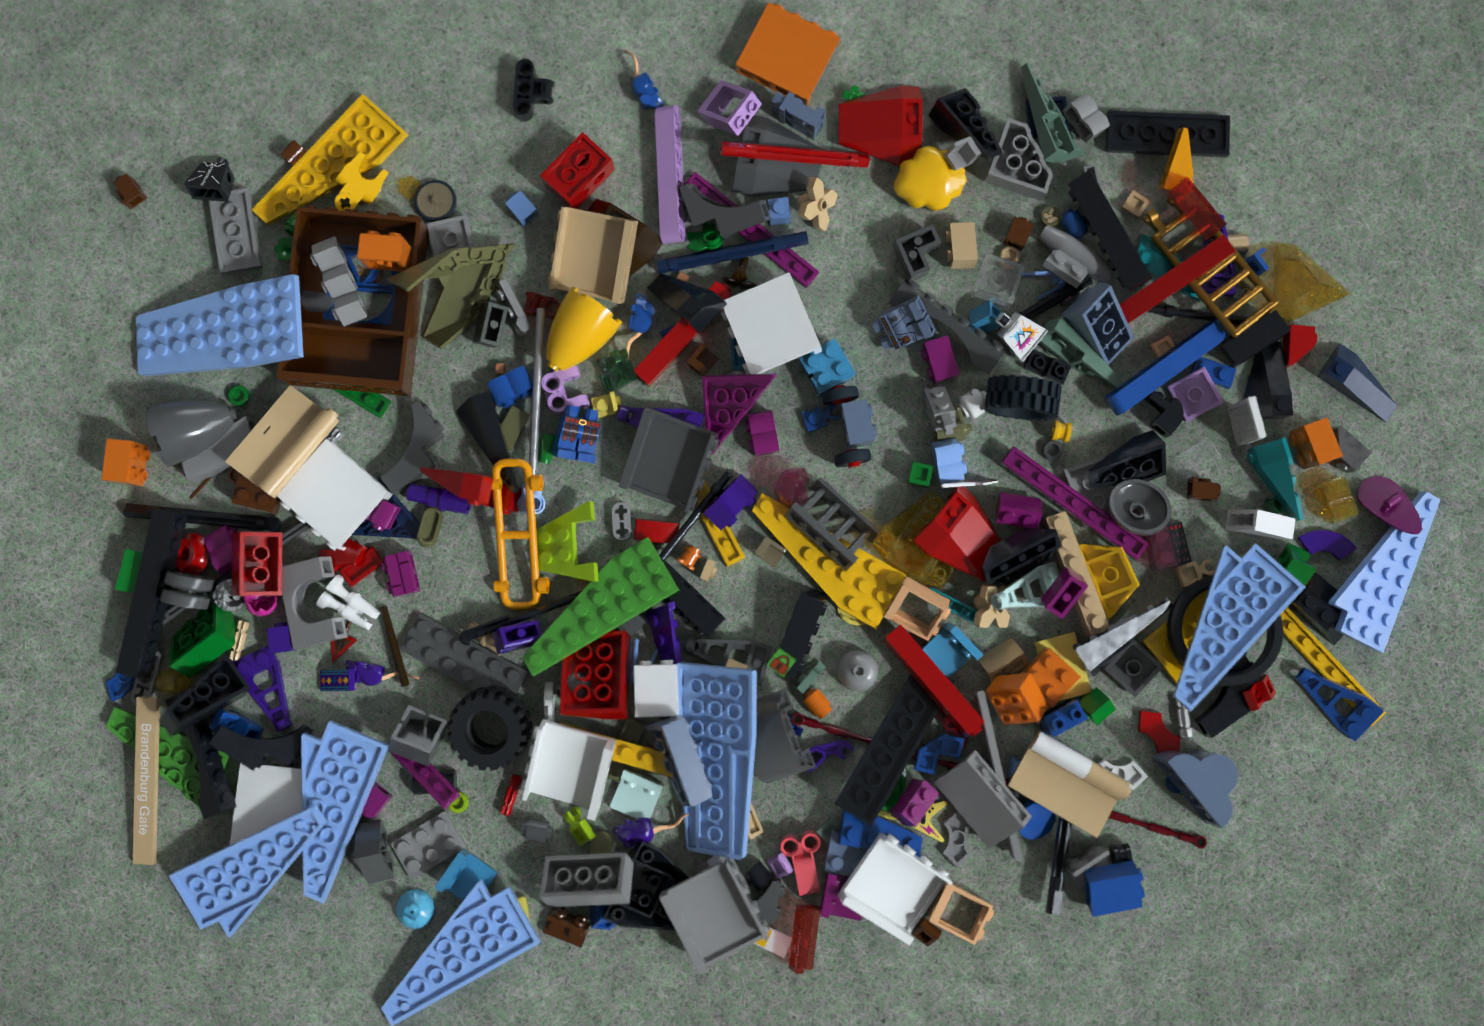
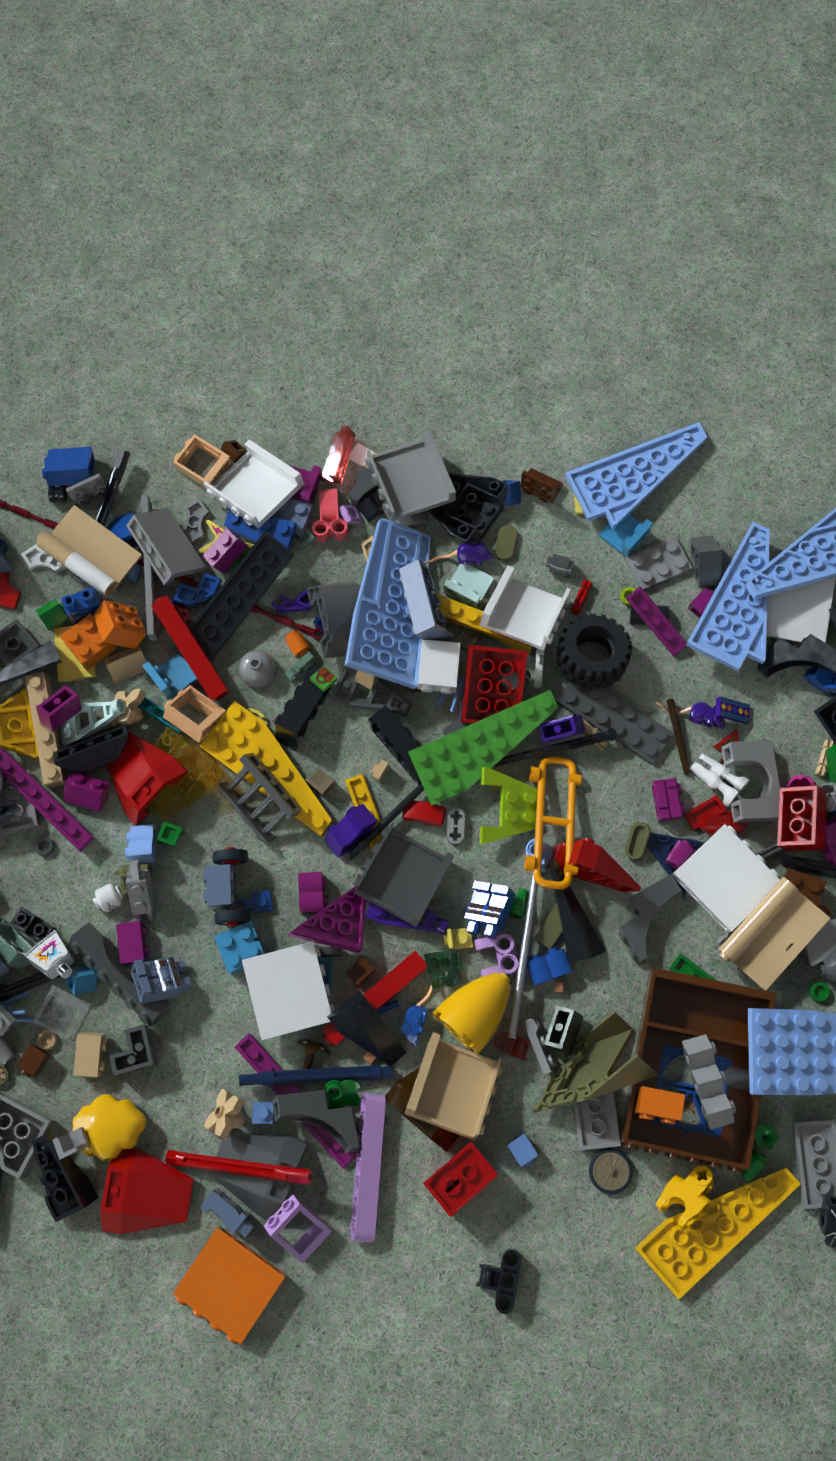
camera: 170 degrees left, 10 degrees down
(255, 664) = (806, 736): dark purple plate -> none
(279, 638) = (784, 753): dark purple brick -> none
(293, 152) = (754, 1240): reddish brown brick -> none
(406, 183) = (640, 1194): clear yellow plant -> none
(416, 740) = (661, 648): dark grey piece -> none
(420, 903) = (673, 513): medium azure hair -> none
(437, 498) = (634, 868): dark purple piece -> none
(579, 828) = (522, 561): lime plate -> none
(587, 879) = (518, 515): light grey brick -> none
(643, 88) = (383, 1266): blue animal -> none
(663, 631) = (427, 720): dark purple wing -> none
(689, 557) = (396, 785): orange brick -> none
(792, 486) = (291, 836): clear pink cylinder -> none
(853, 93) = (169, 1230): green plant -> none
(969, 483) = (115, 822): white piece -> none
(1023, 397) = (60, 889): black wheel -> none
(1061, 431) = (32, 862): yellow wheel -> none

